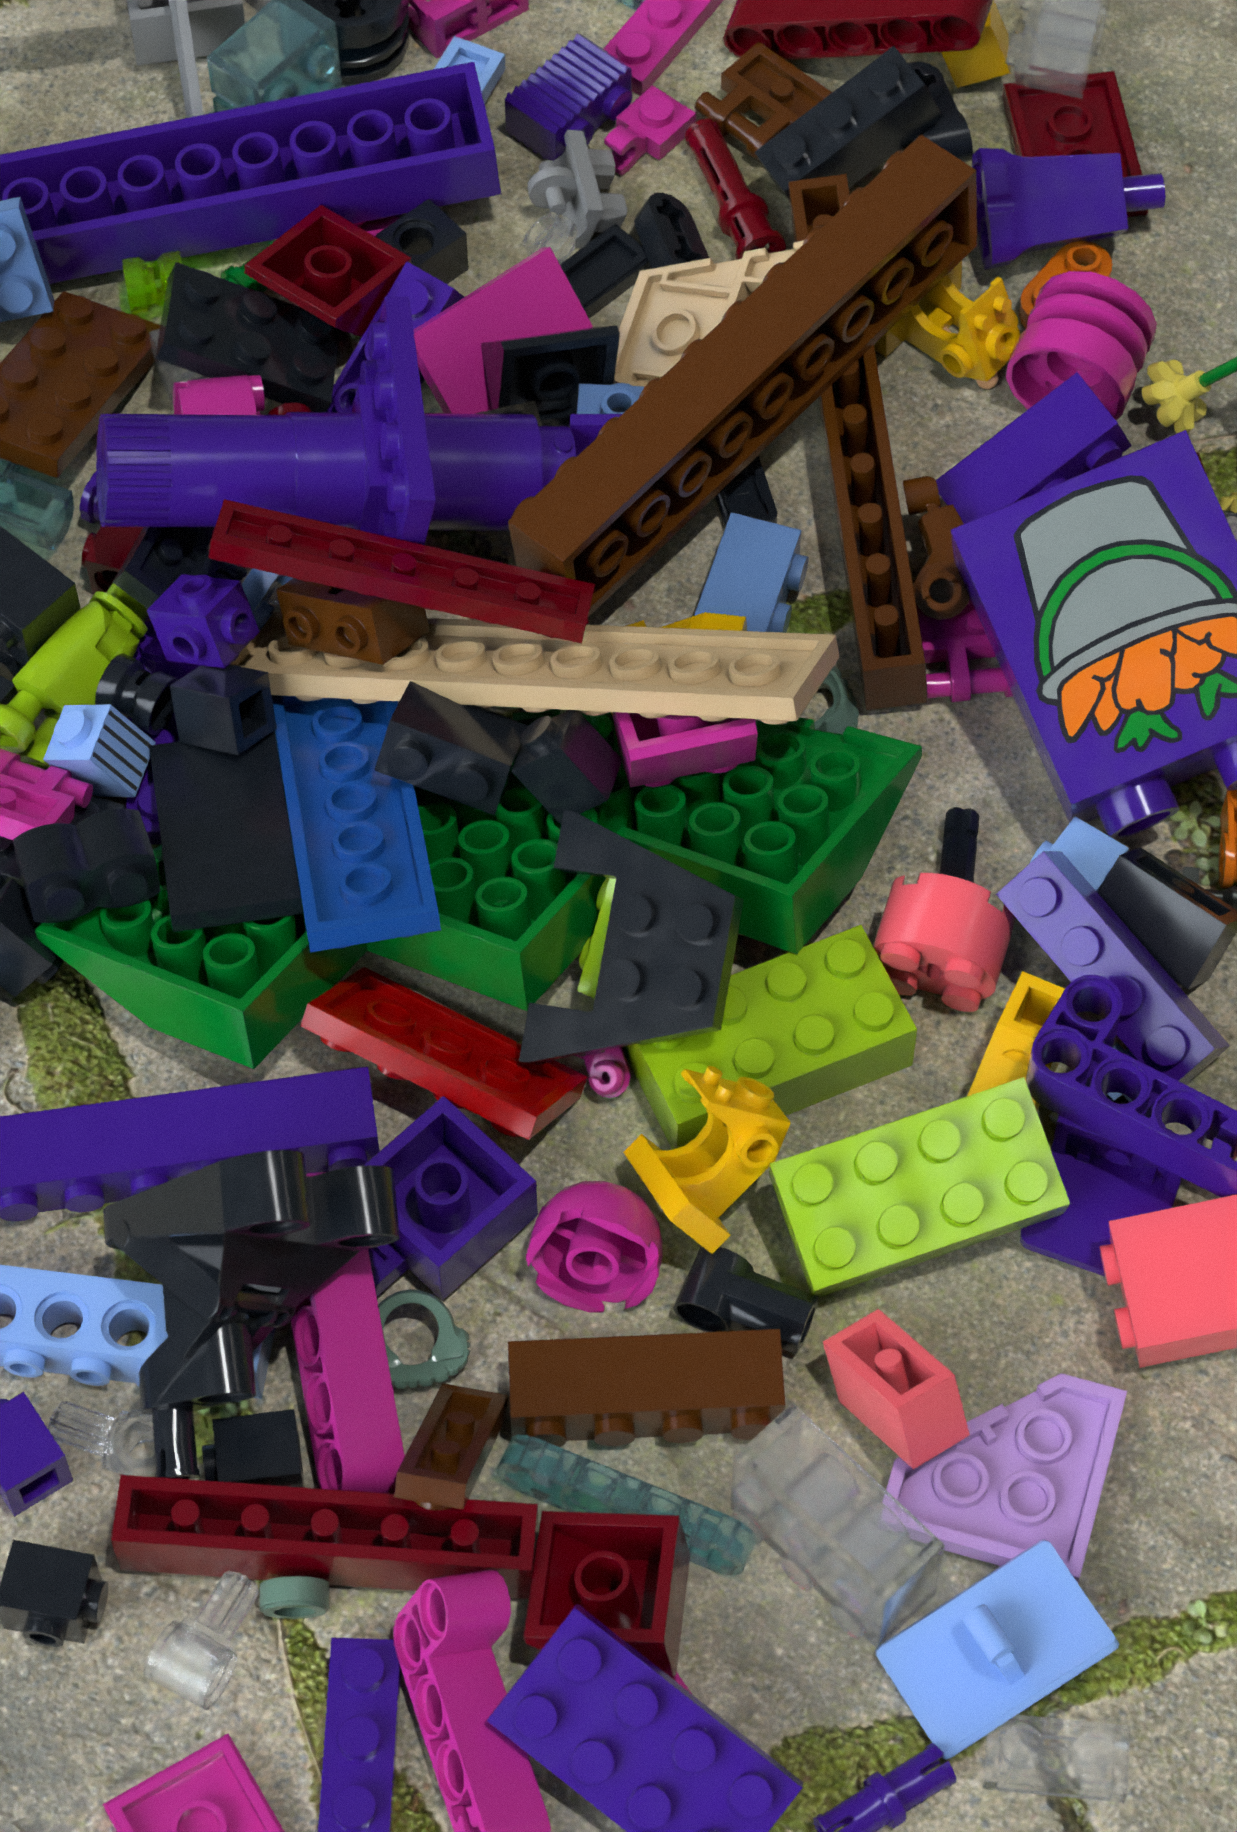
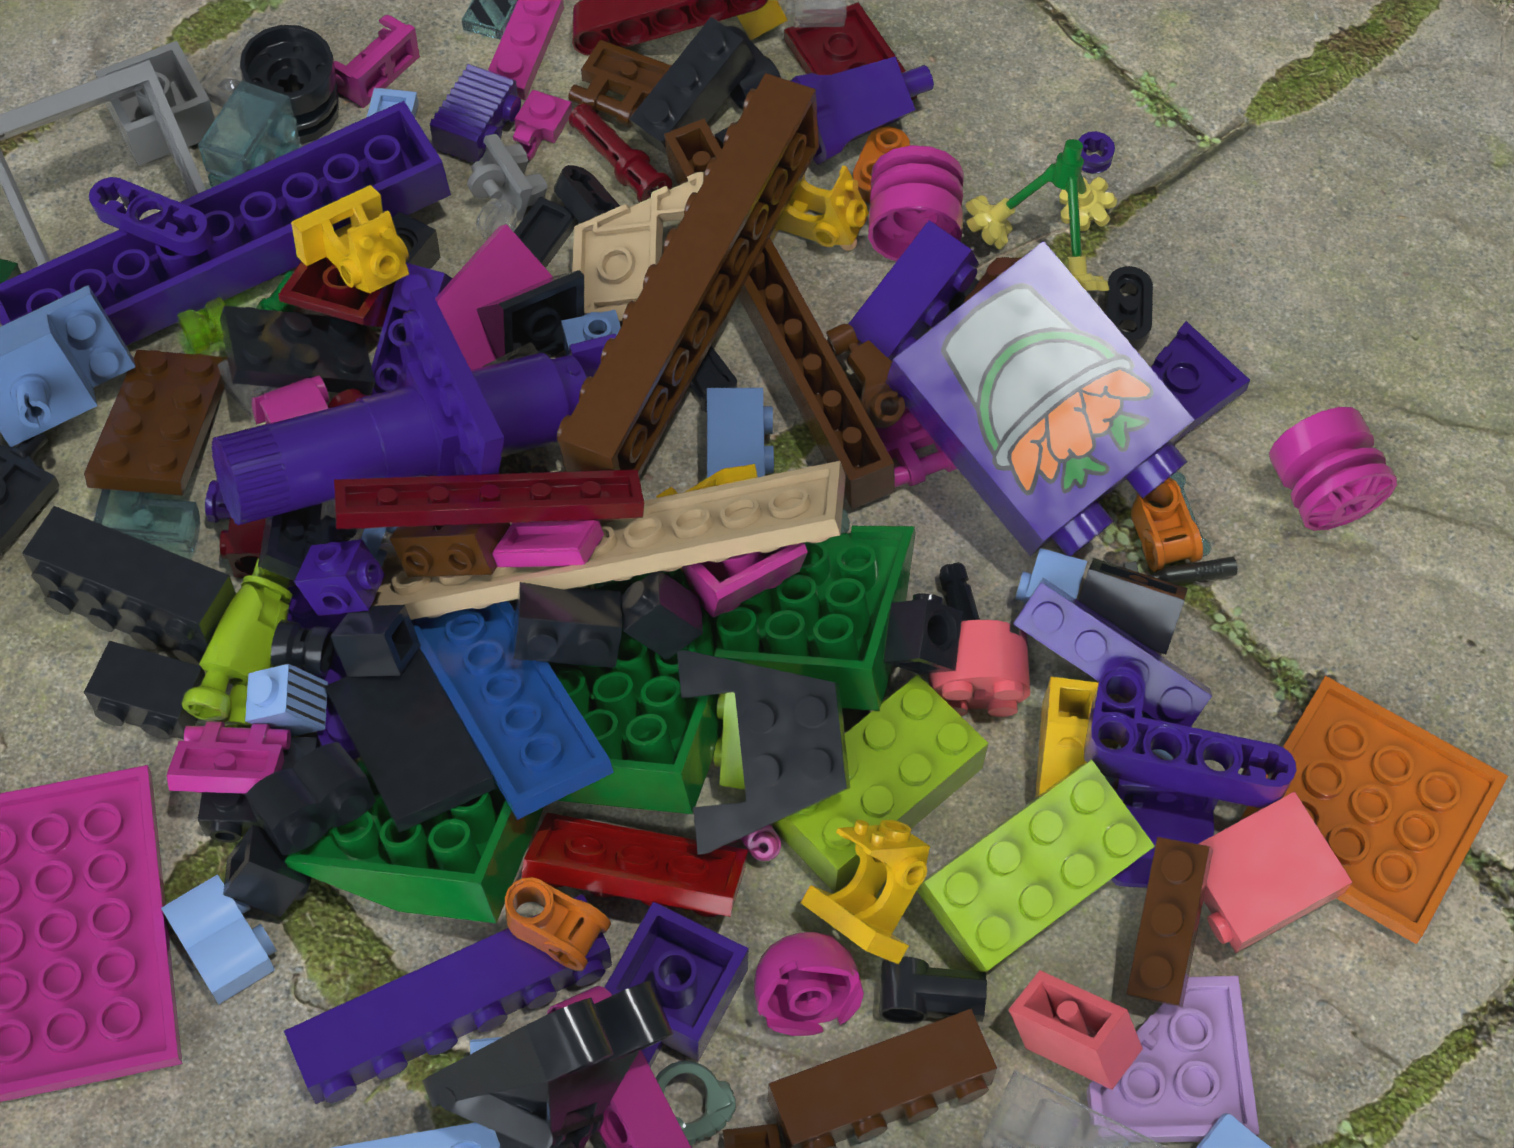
camera: 20 degrees left, 0 degrees up
(128, 153) = (161, 231): none -> dark purple beam
(328, 1092) = (564, 926): none -> orange piece
(360, 237) = (364, 251): none -> yellow tile
(459, 645) = (548, 543): none -> dark pink tile
(854, 876) = (923, 635): none -> black brick
(1059, 1299) = (1169, 921): none -> reddish brown plate

